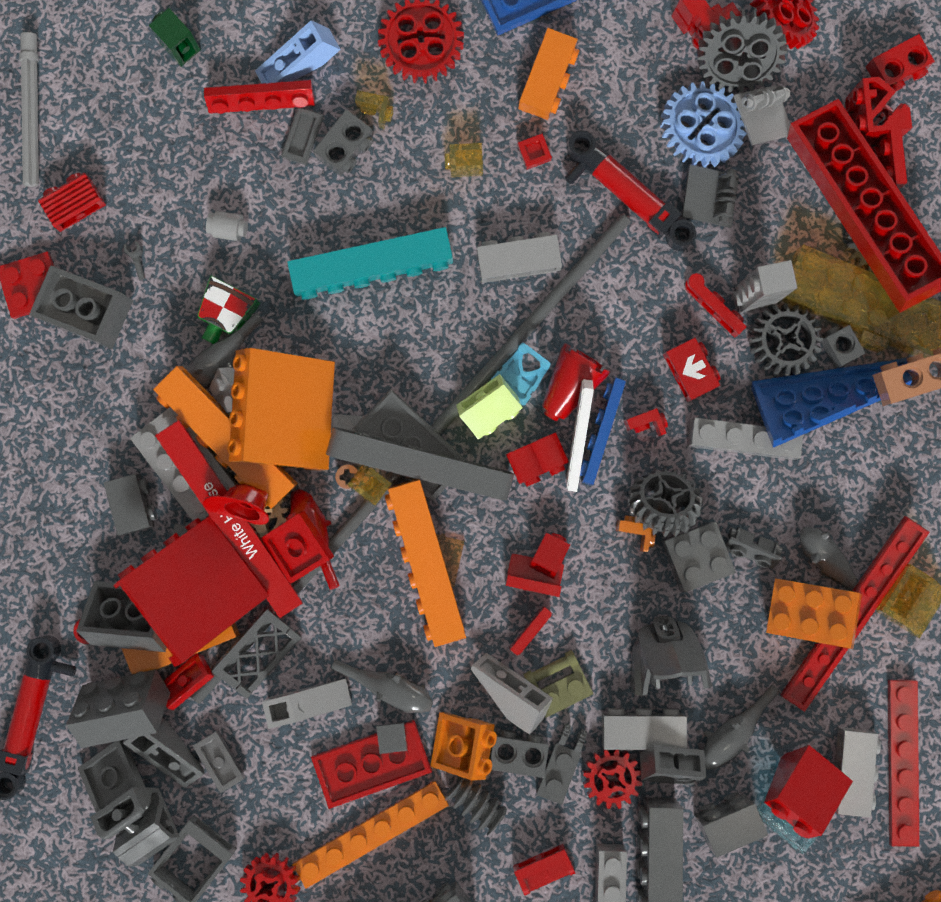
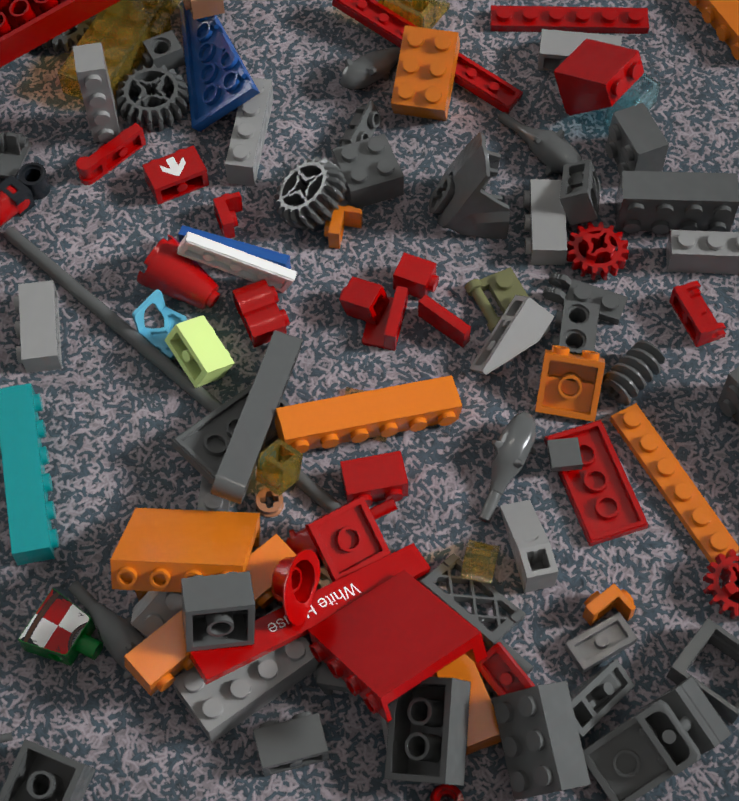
camera: 85 degrees left, 25 degrees down
(204, 442) = (218, 611): none -> dark grey brick
(251, 763) = (600, 604): none -> orange bracket
(291, 661) = (479, 561): none -> clear yellow bracket
(366, 567) = (375, 477): none -> red brick
(579, 604) = (416, 275): none -> red brick

